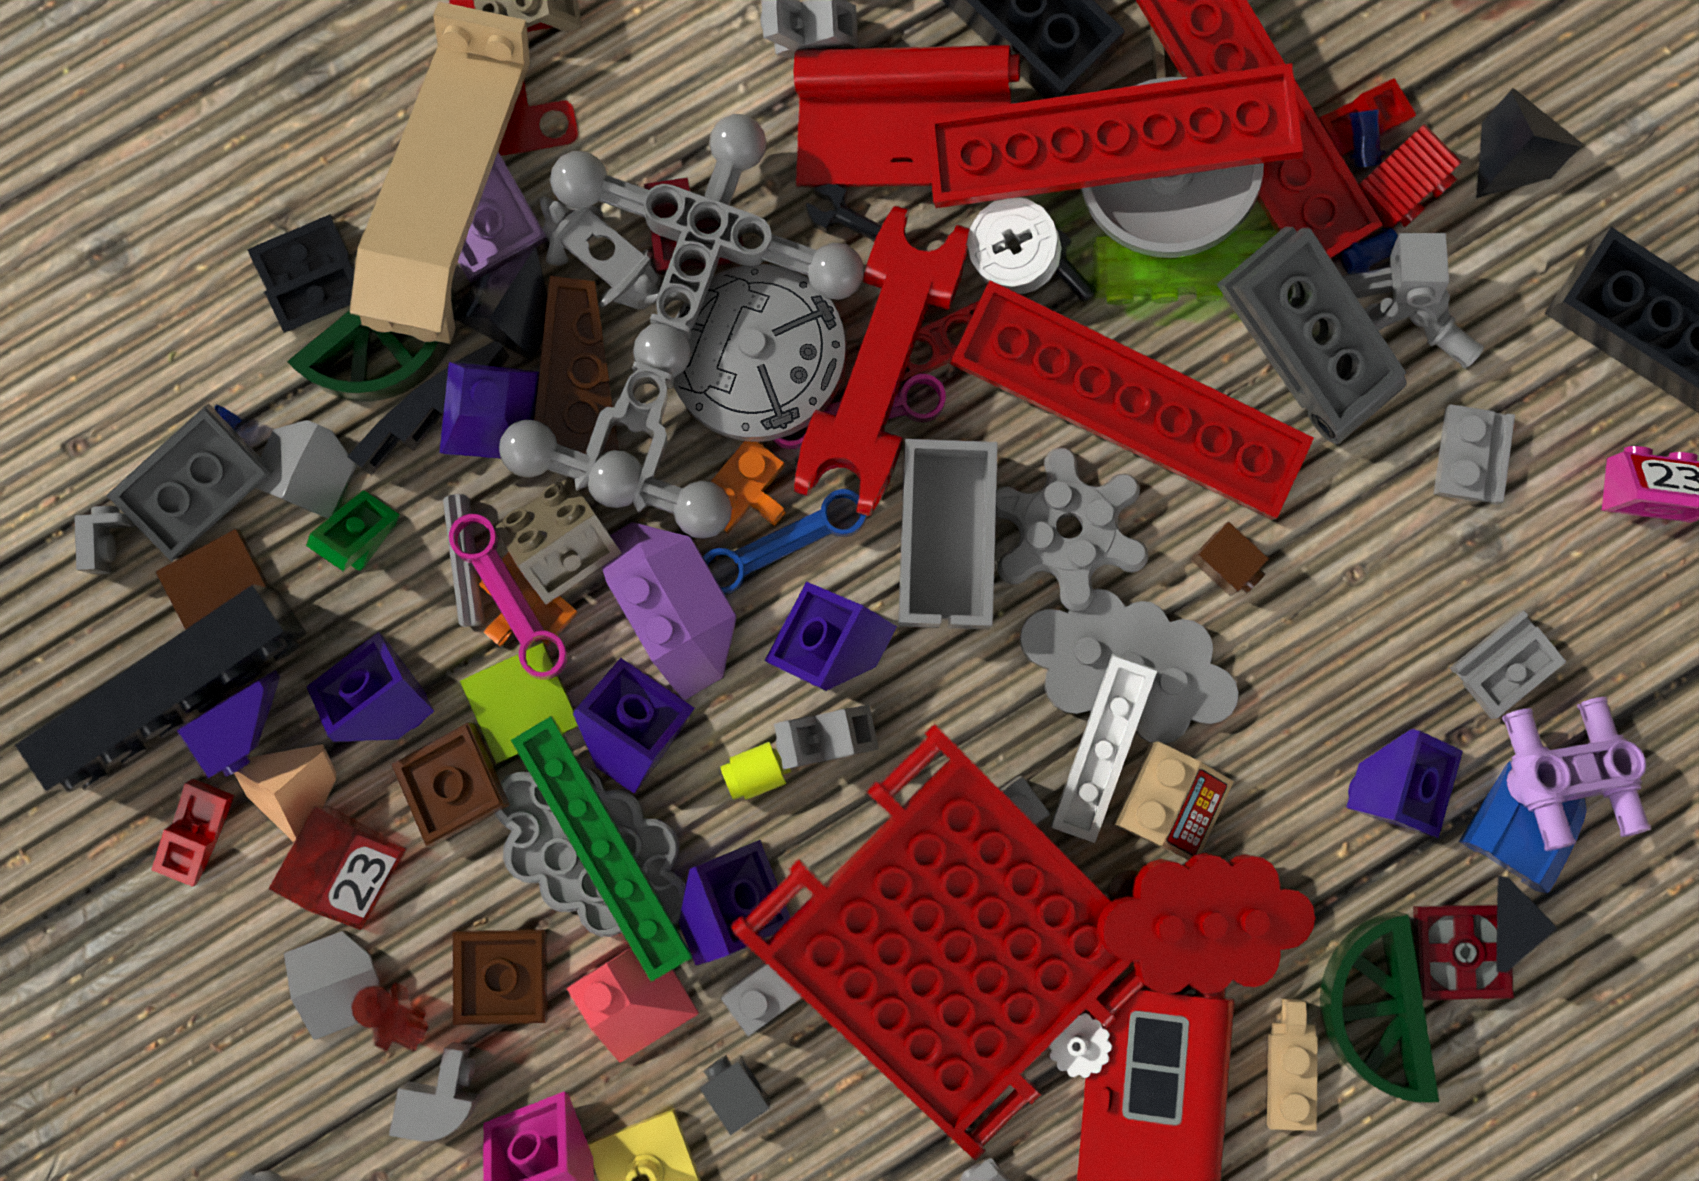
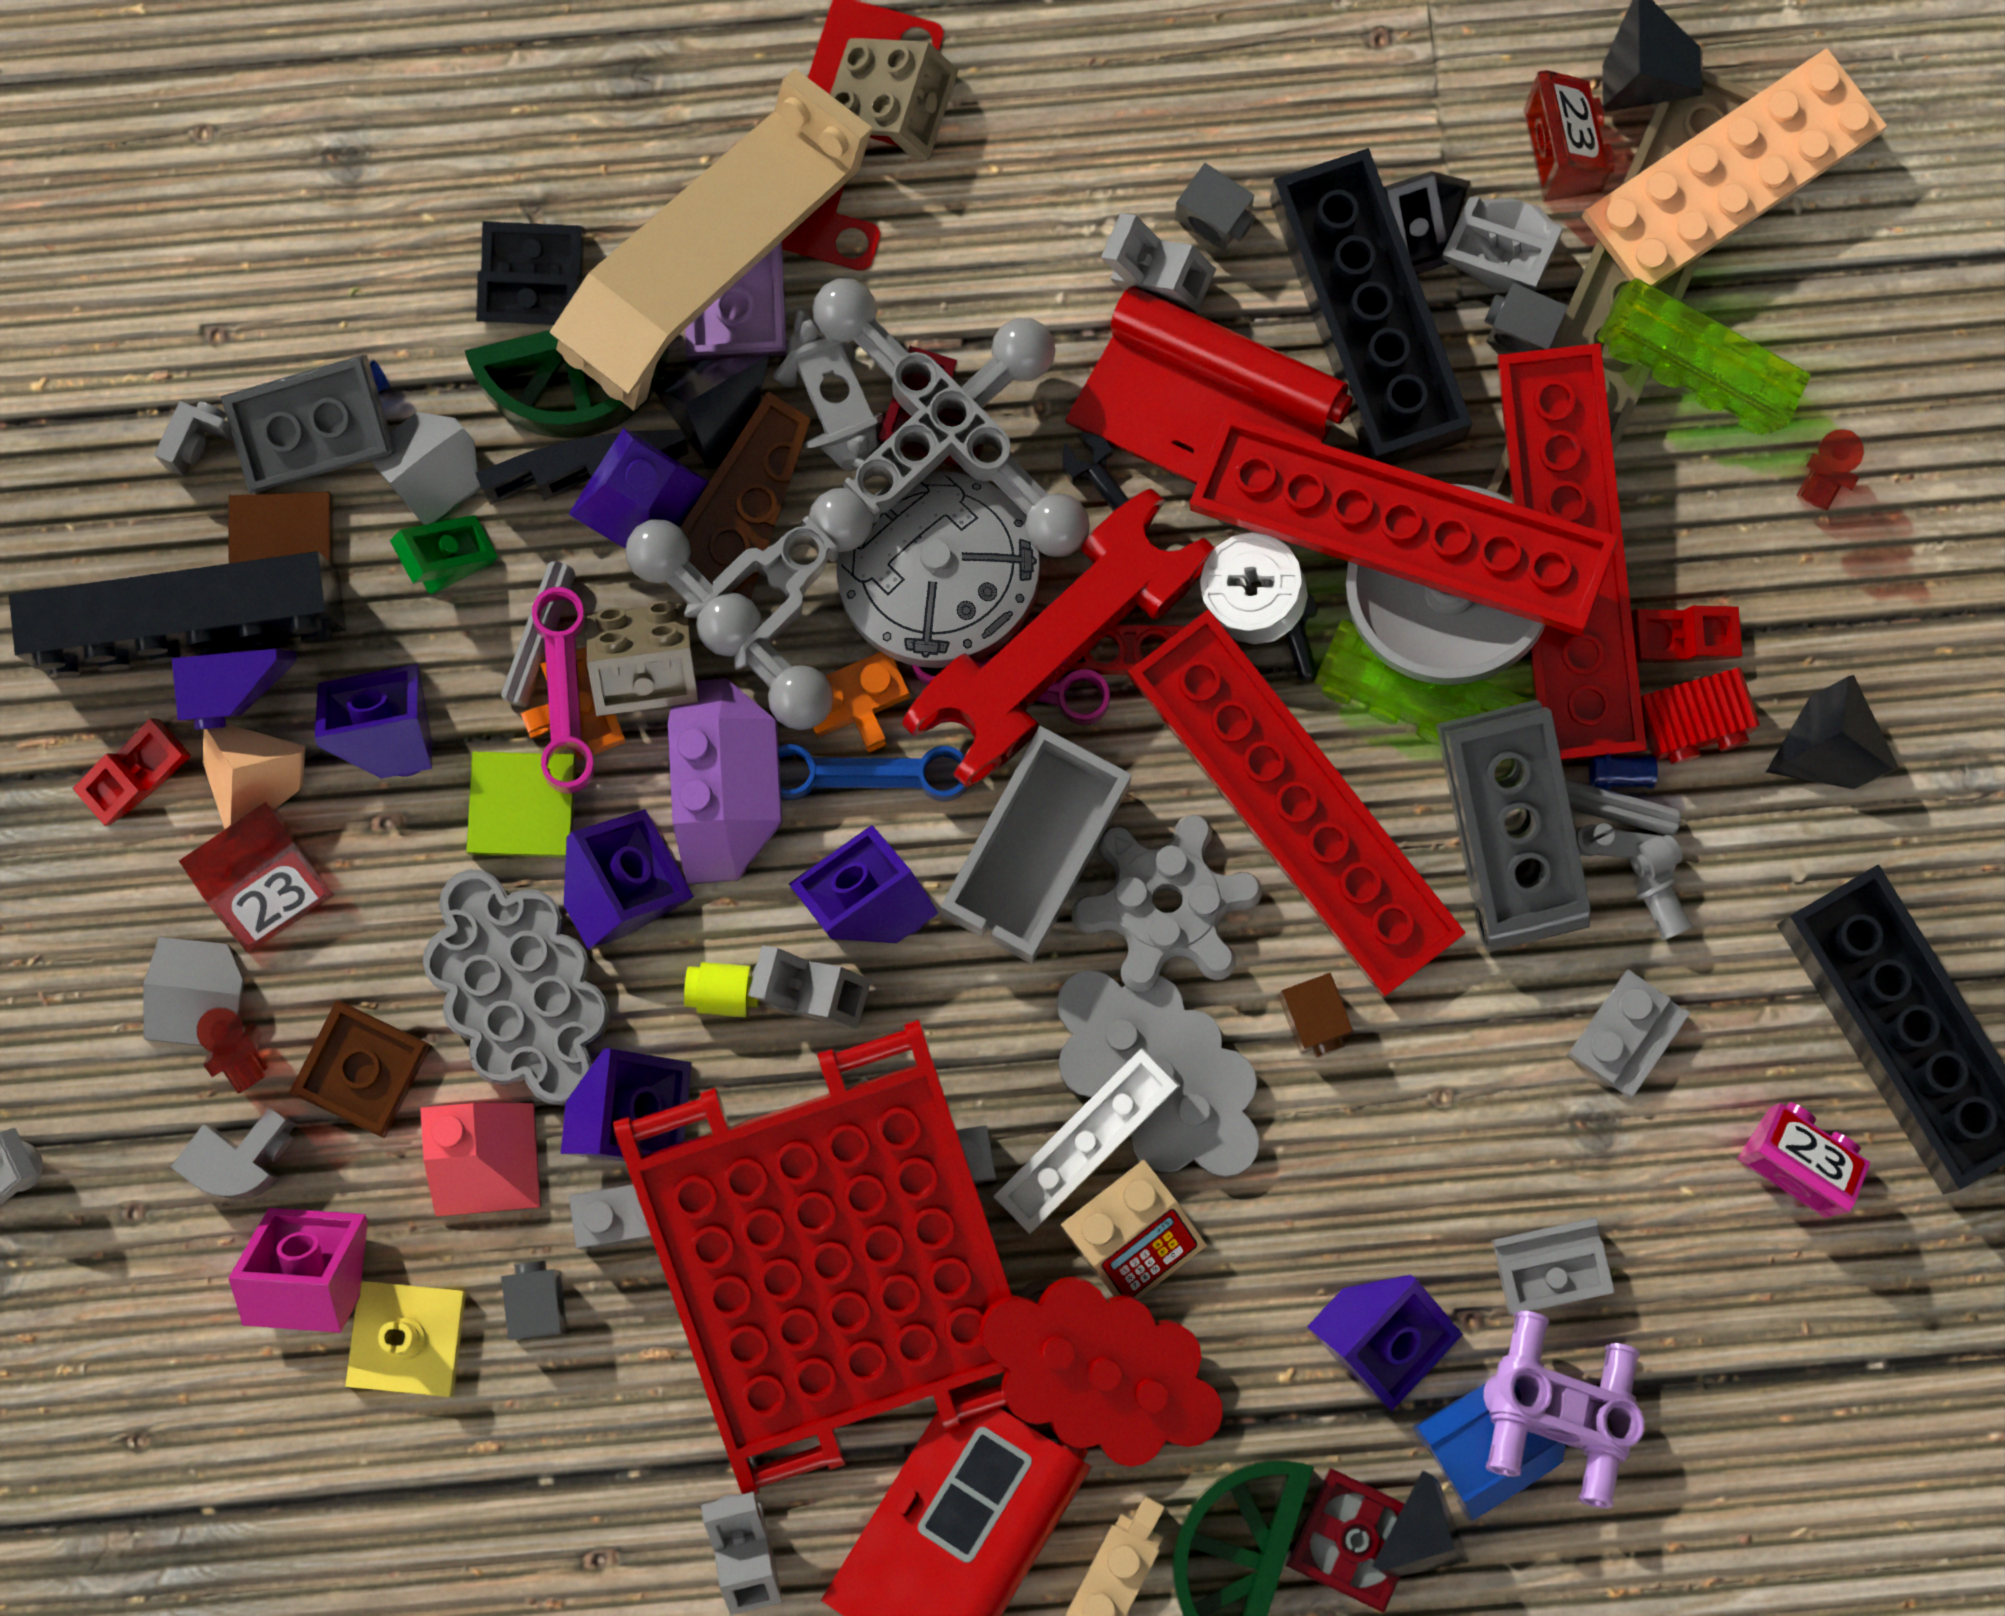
camera: 30 degrees right, 5 degrees down
(450, 784) = (410, 850): reddish brown tile -> none
(601, 848) = (527, 987): green plate -> none
(1081, 1047) = (910, 1436): white piece -> none
(1366, 138) = (1674, 654): clear blue pin -> none
(1419, 268) = (1657, 811): light grey brick -> none

